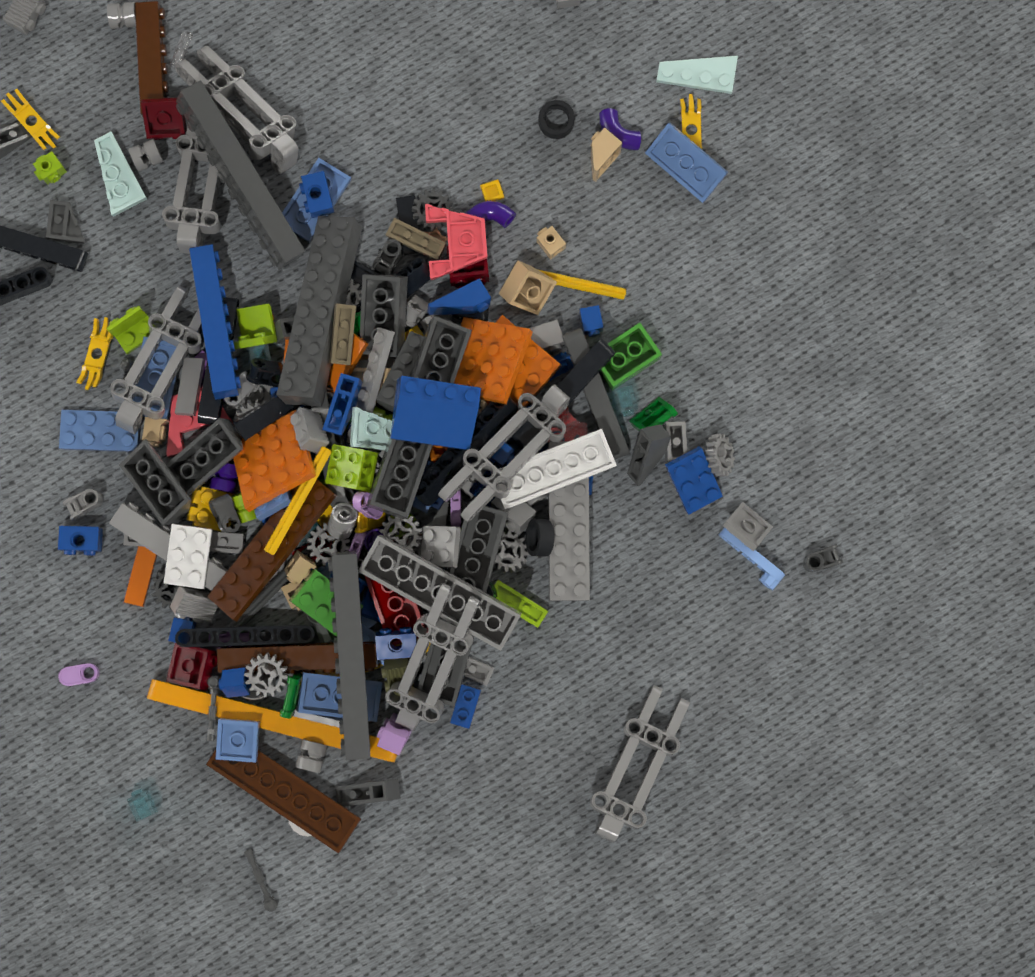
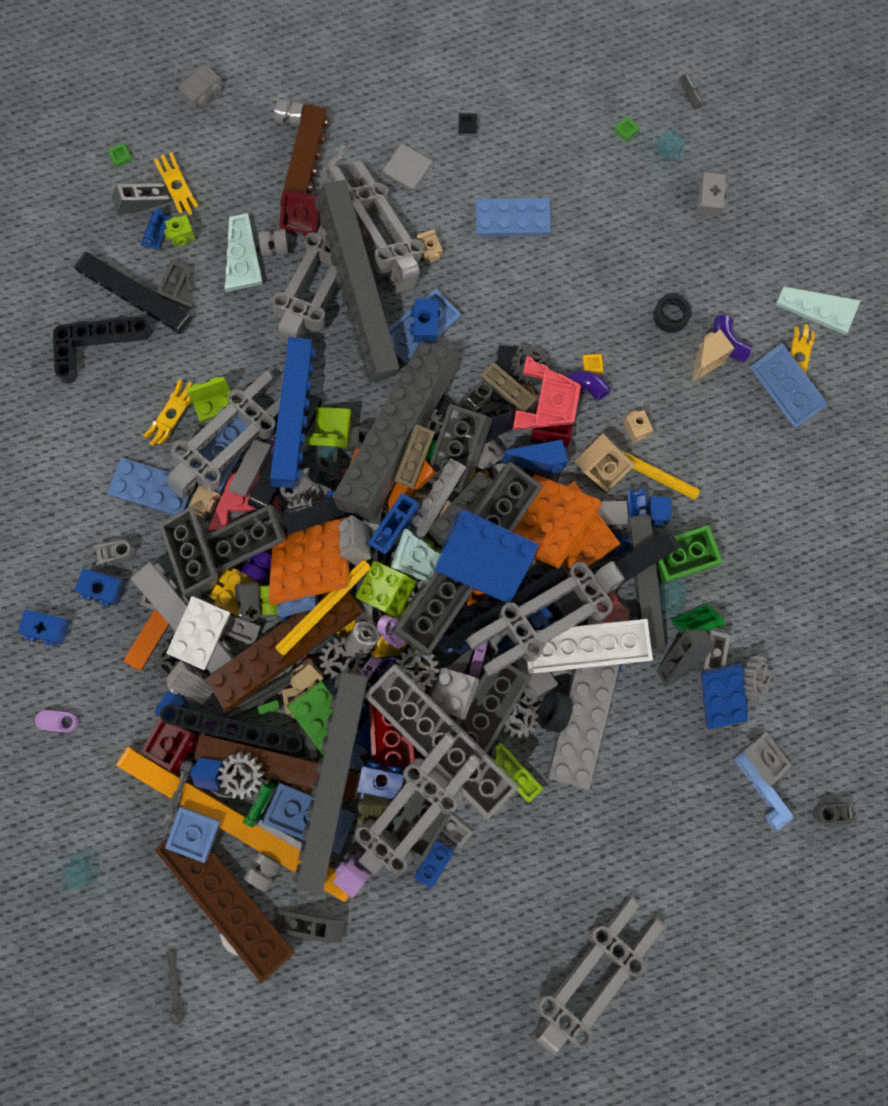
camera: 10 degrees right, 5 degrees down
(24, 172) = (155, 229): none -> blue hinge
(27, 592) = (32, 623): none -> blue brick
(256, 39) = (407, 167): none -> light grey tile
(274, 607) = (269, 707): none -> bright green tile
(295, 110) = (430, 253): none -> tan brick
(375, 62) = (513, 217): none -> medium blue plate
(566, 317) = (635, 501): none -> blue hinge

